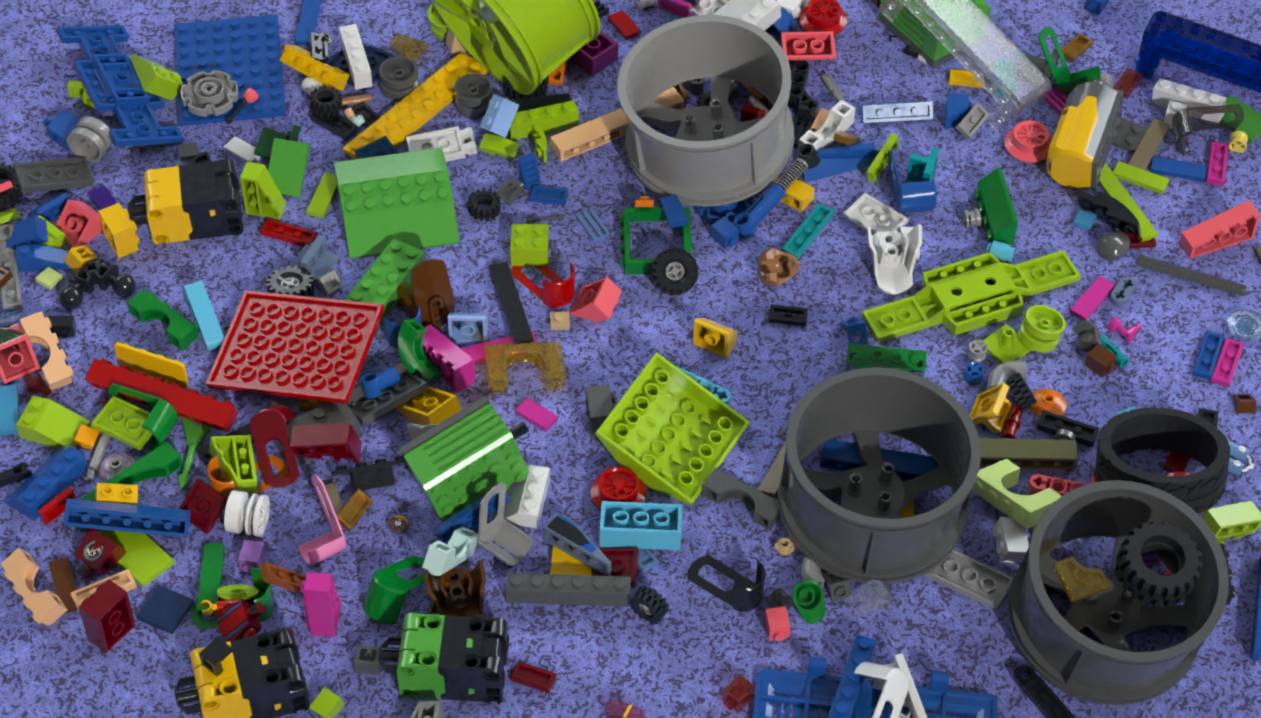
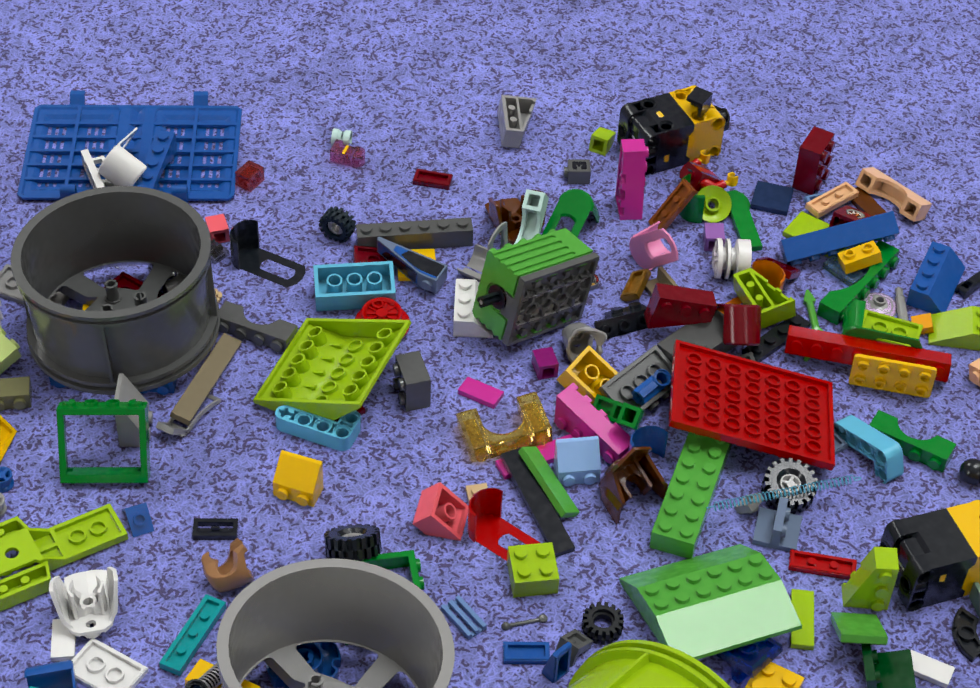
camera: 170 degrees right, 5 degrees down
(55, 506) = (912, 260): red tile -> none
(301, 268) = (785, 495): none -> medium azure piece
(449, 657) = (506, 158): black piece -> none
(497, 314) = (548, 482): none -> bright green tile

